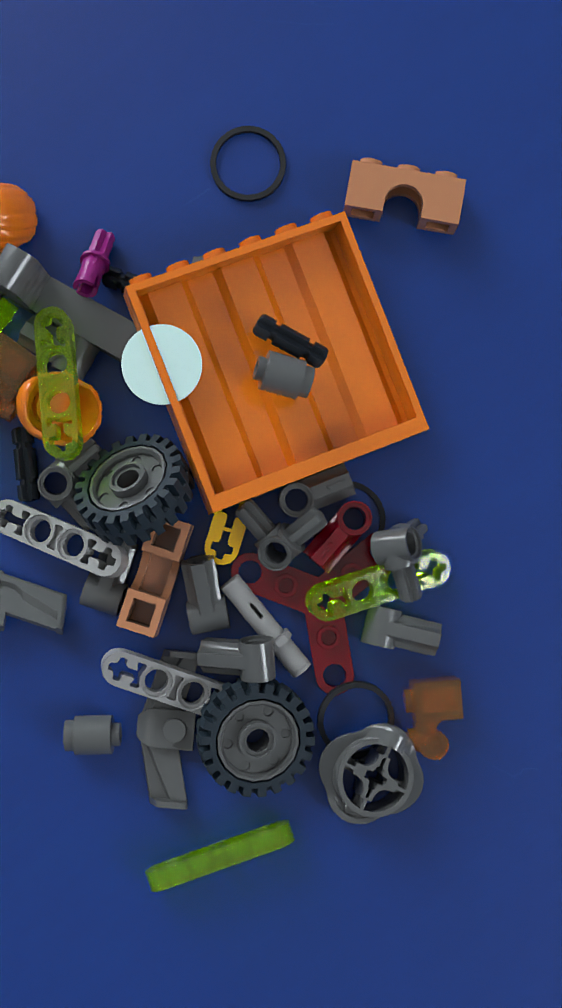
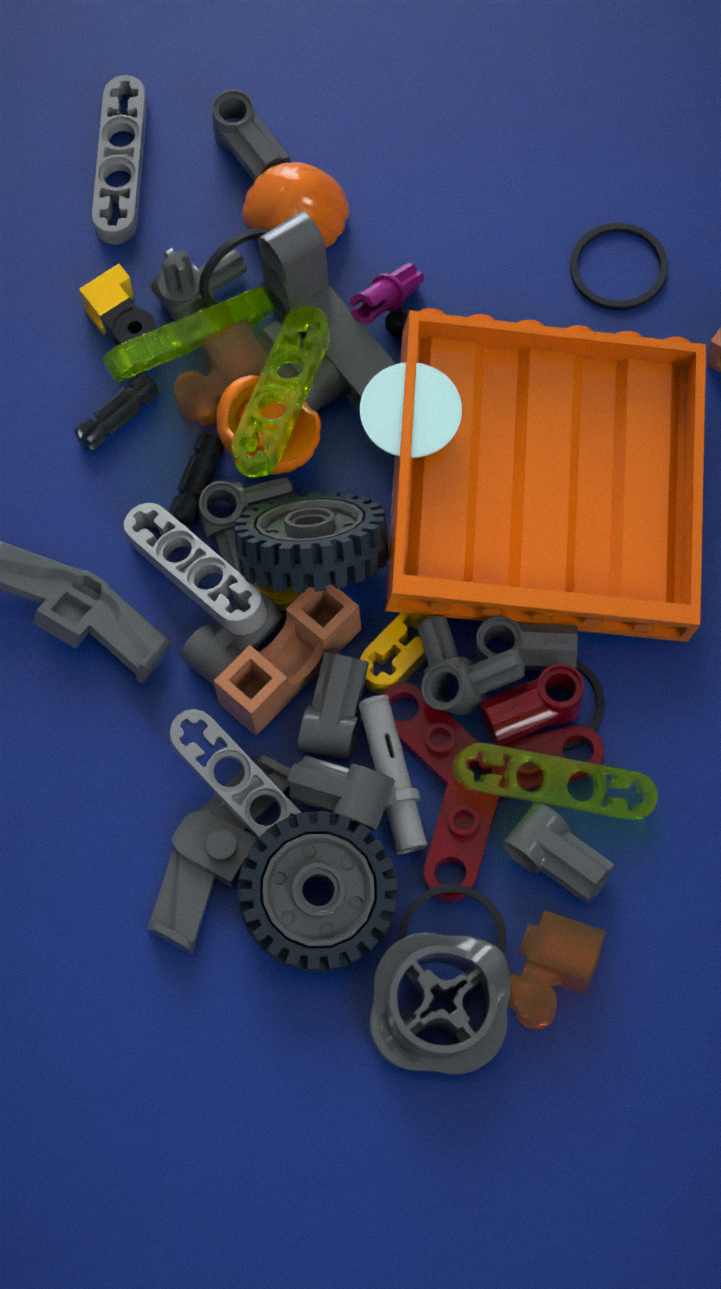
camera: 35 degrees right, 20 degrees down
(92, 734) = (118, 810): dark grey brick -> none
(219, 855) = (202, 1024): clear neon green beam -> none
(284, 375) = (547, 478): dark grey brick -> none
(290, 341) = (574, 449): black axle -> none
(398, 552) = (595, 742): dark grey axle -> none

